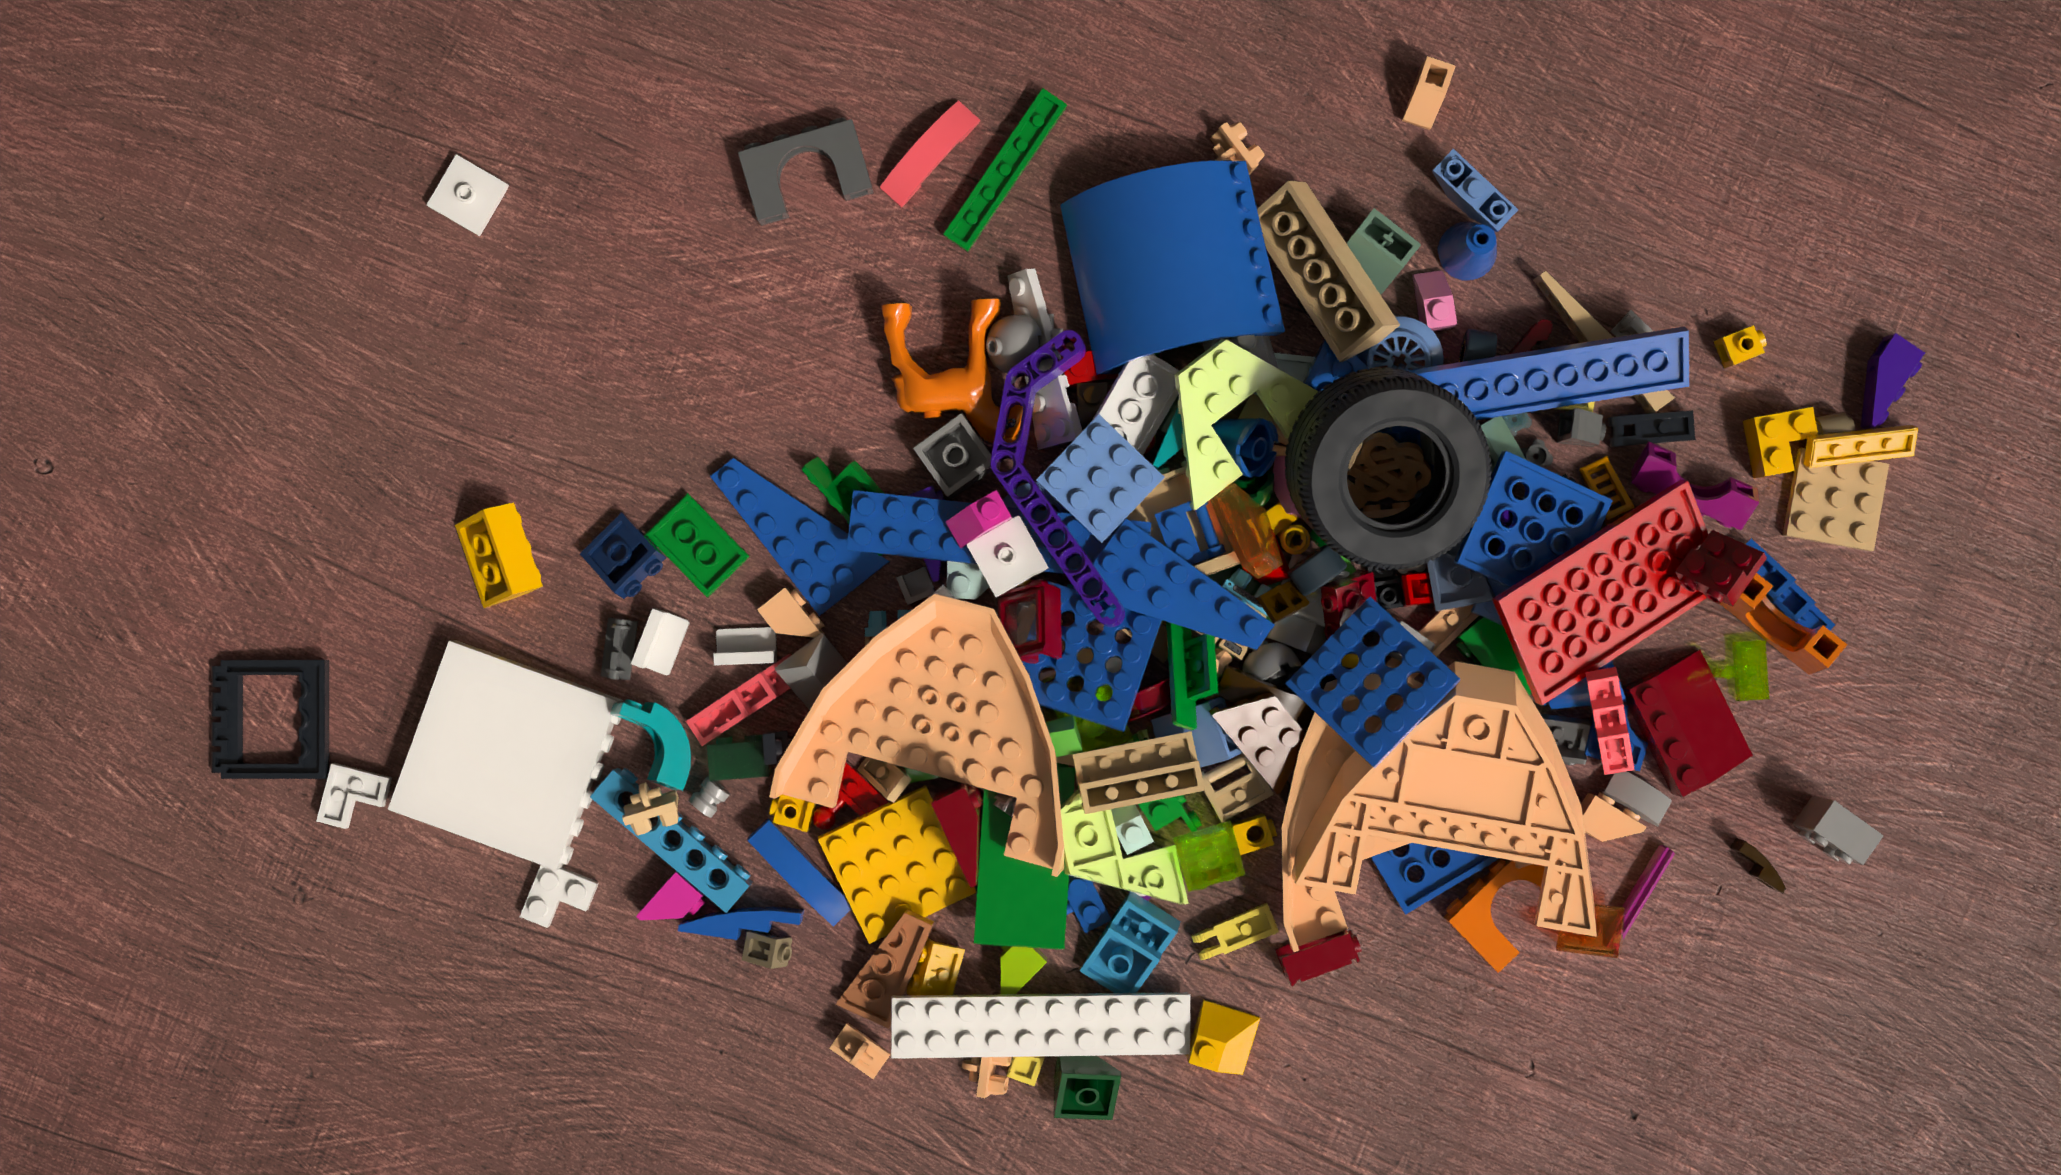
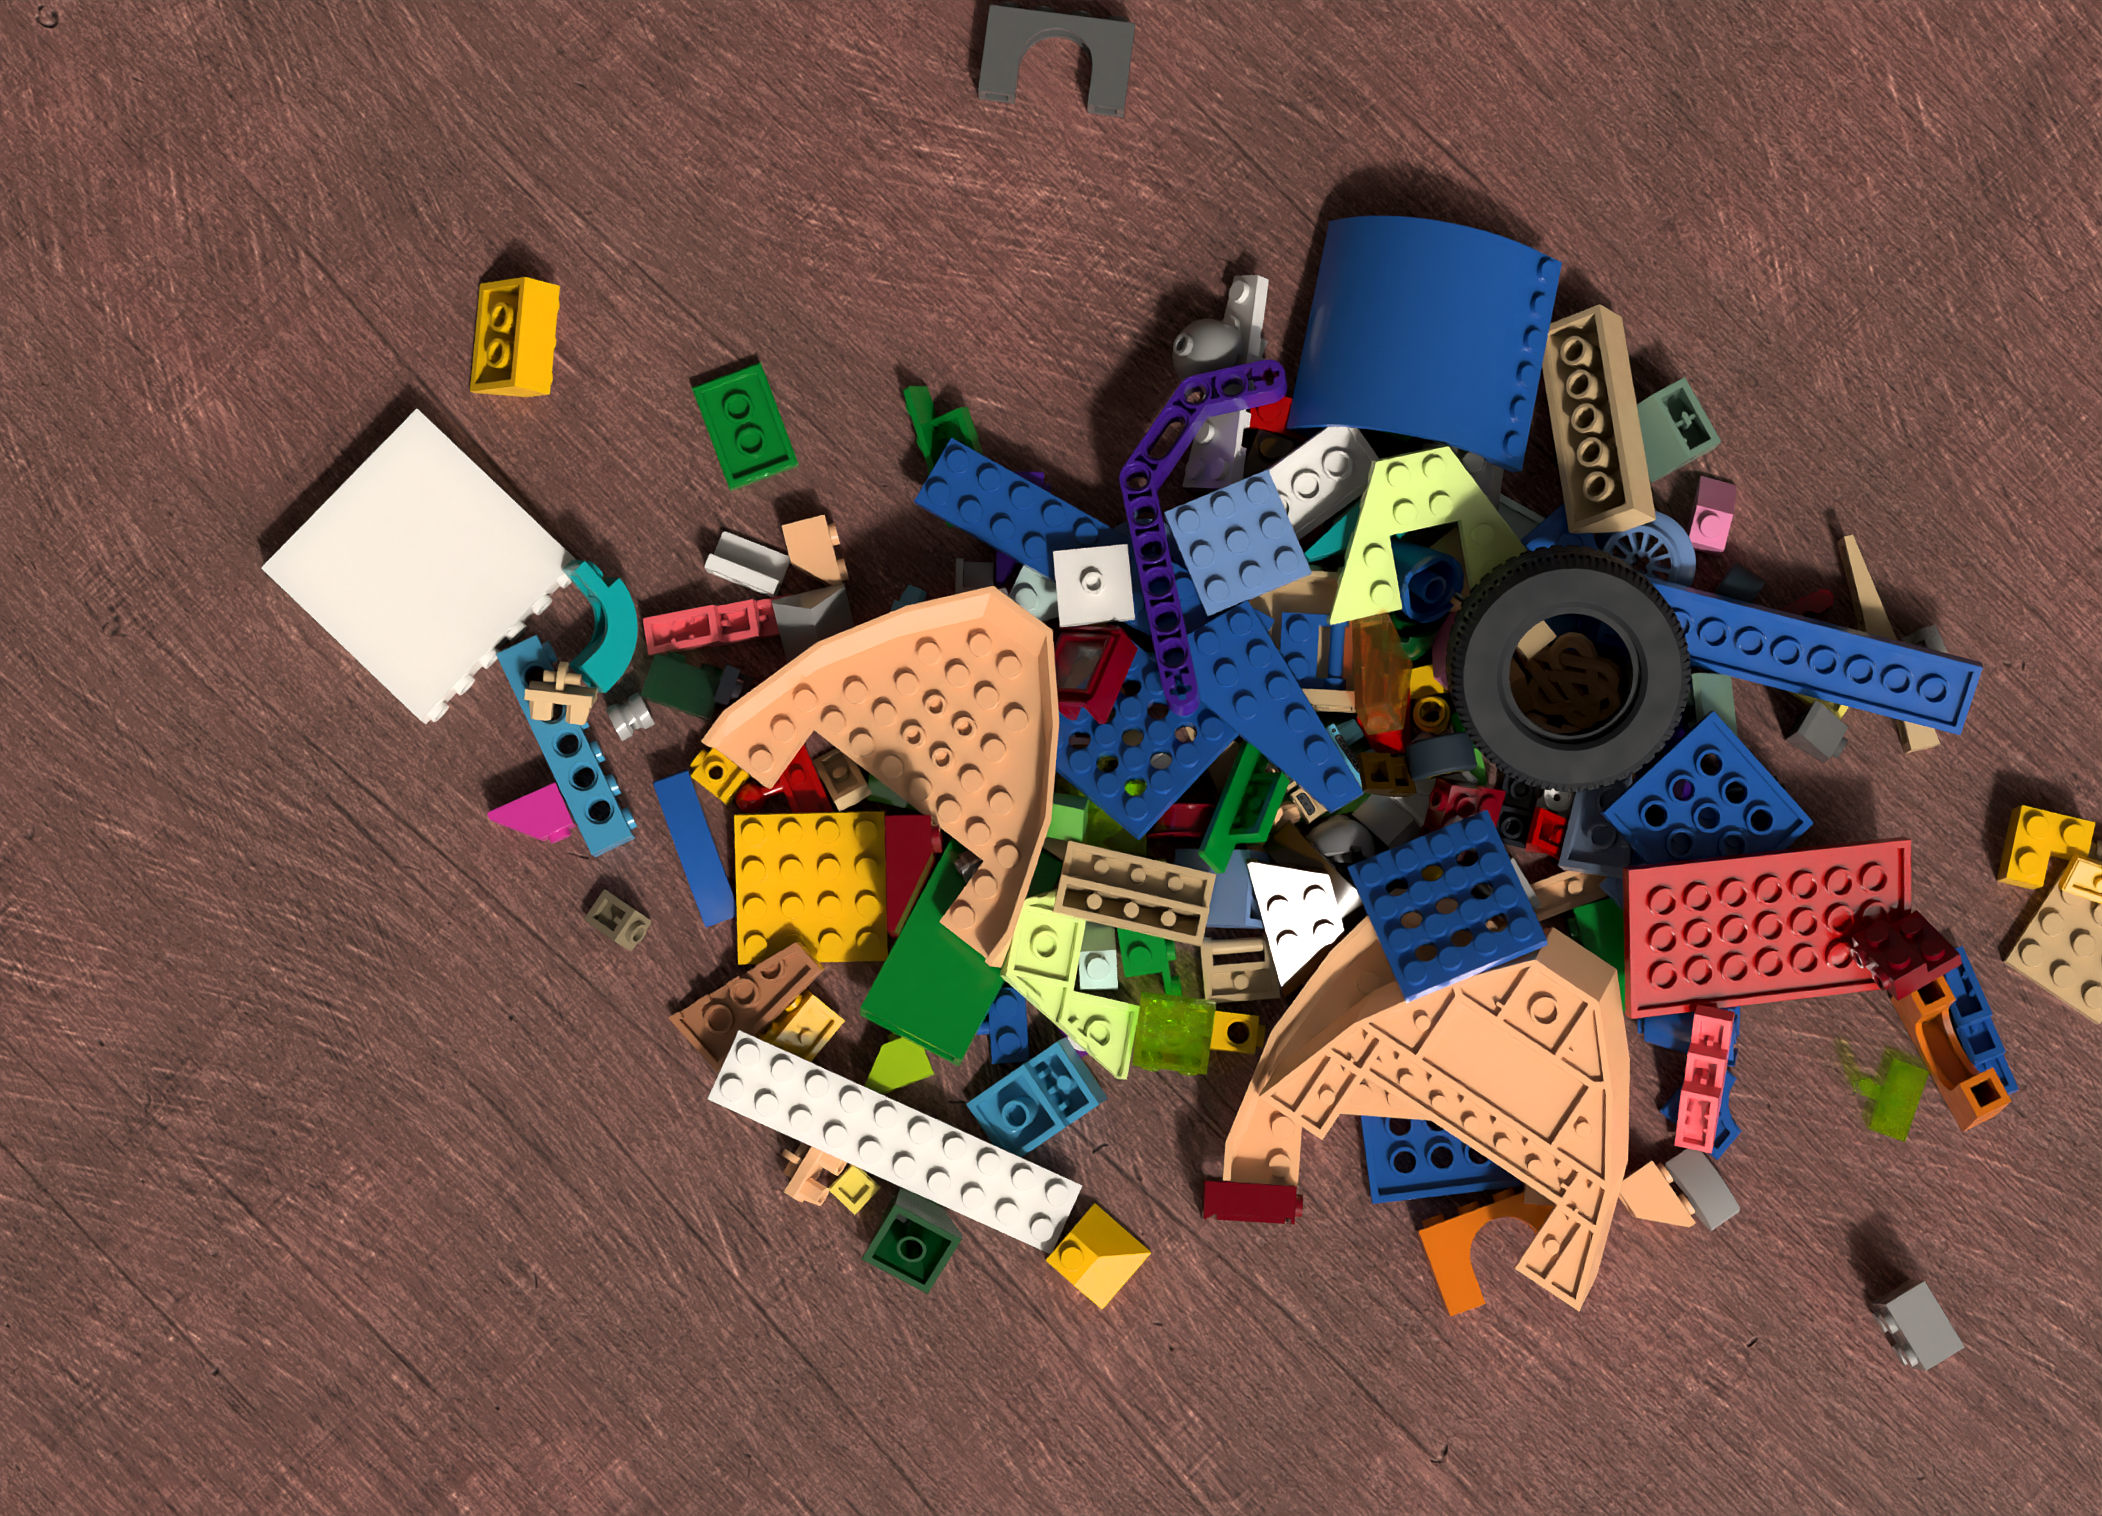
camera: 25 degrees right, 5 degrees down
(229, 732) = (221, 431): black hinge -> none
(344, 788) = (220, 524): white plate -> none
(556, 886) = (404, 741): white plate -> none
(619, 648) = (603, 503): dark grey hinge -> none
(623, 557) = (656, 401): dark blue plate -> none
(660, 641) = (654, 516): white panel -> none
(730, 924) = (591, 870): blue slope -> none
(798, 538) = (863, 468): blue wing -> none
(860, 1050) = (673, 1082): light nougat hips -> none
(928, 153) = (1205, 98): coral slope -> none
(955, 456) = (1084, 451): light grey brick -> none
(957, 387) = (1118, 374): orange animal -> none
(979, 518) = (1080, 527): dark pink slope -> none
(1005, 170) = (1283, 156): green plate -> none
(1230, 147) = (1552, 240): light nougat hips -> none
(1238, 931) = (1171, 1139): light yellow hinge -> none
(1428, 92) = (1805, 276): light nougat slope -> none
(1467, 250) = (1775, 476): blue cone -> none
(1473, 192) = (1807, 409): medium blue slope -> none
(1523, 421) = (1754, 698): clear light blue plate -> none
(1538, 447) = (1760, 737): dark grey plate -> none
(1570, 737) = (1650, 1081): dark grey bracket -> none
(1609, 935) = (1590, 1328): clear orange slope -> none
(1616, 485) = (1819, 787): light orange slope -> none
(1645, 885) = (1652, 1306): magenta axle -> none
(1653, 427) = (1901, 770): black plate -> none
(1687, 724) = (1797, 1127): dark red slope -> none
(1727, 502) = (1950, 891): magenta arch -> none
(1731, 349) = (2032, 725): yellow brick -> none
(1762, 868) = (1813, 1339): dark brown slope -> none

